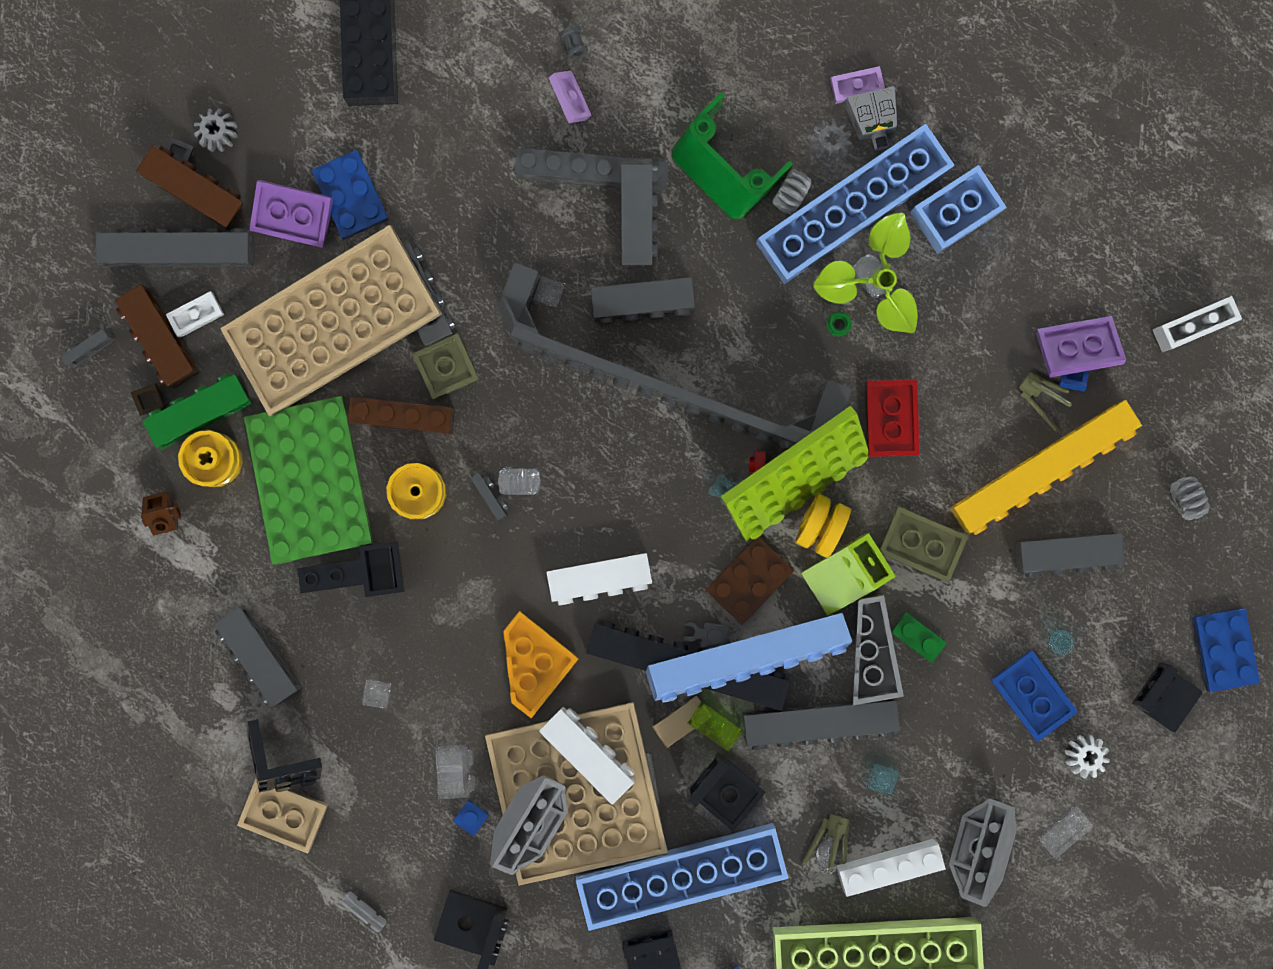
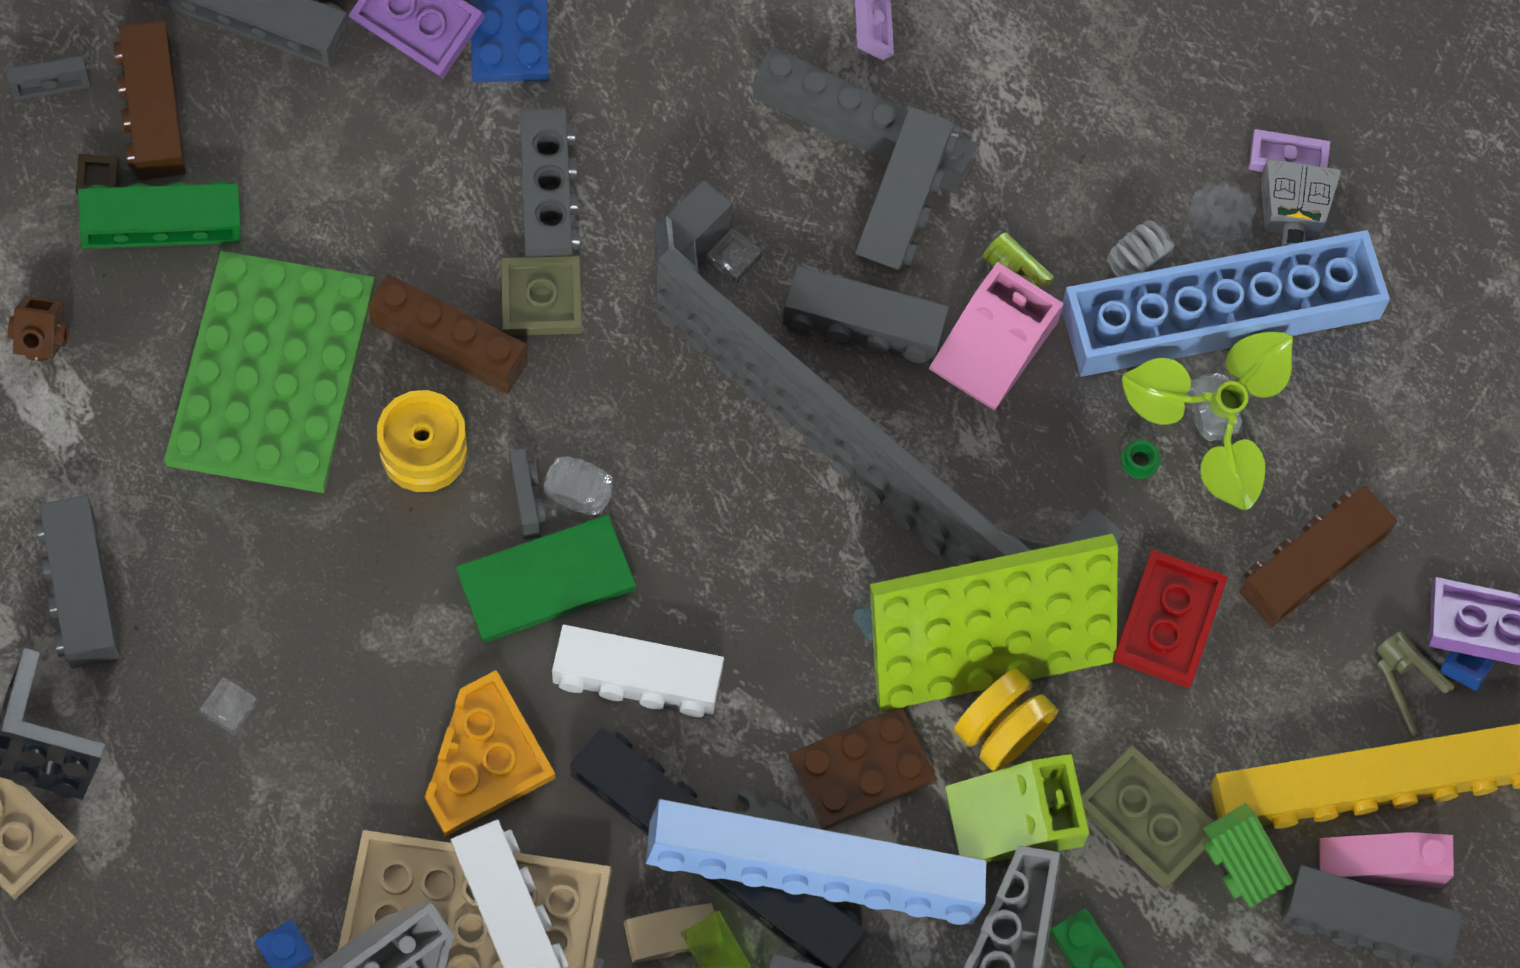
camera: 15 degrees right, 20 degrees down
(195, 314) = (219, 93): white plate -> none
(195, 457) = (146, 284): yellow wheel -> none
(331, 320) = (406, 168): tan plate -> none
(376, 569) = (312, 528): black plate -> none
(454, 771) = (291, 865): clear brick -> none
(523, 541) = (545, 578): none -> green tile
(714, 175) = (1037, 193): green windscreen -> none
(722, 229) = (1017, 259): none -> lime hinge
(726, 283) = (997, 336): none -> bright pink slope
(958, 209) = (1374, 366): light blue brick -> none
(964, 344) = (1317, 555): none -> reddish brown brick
(988, 549) = (1246, 855): none -> bright green brick
(1066, 514) = (1390, 858): none -> bright pink slope

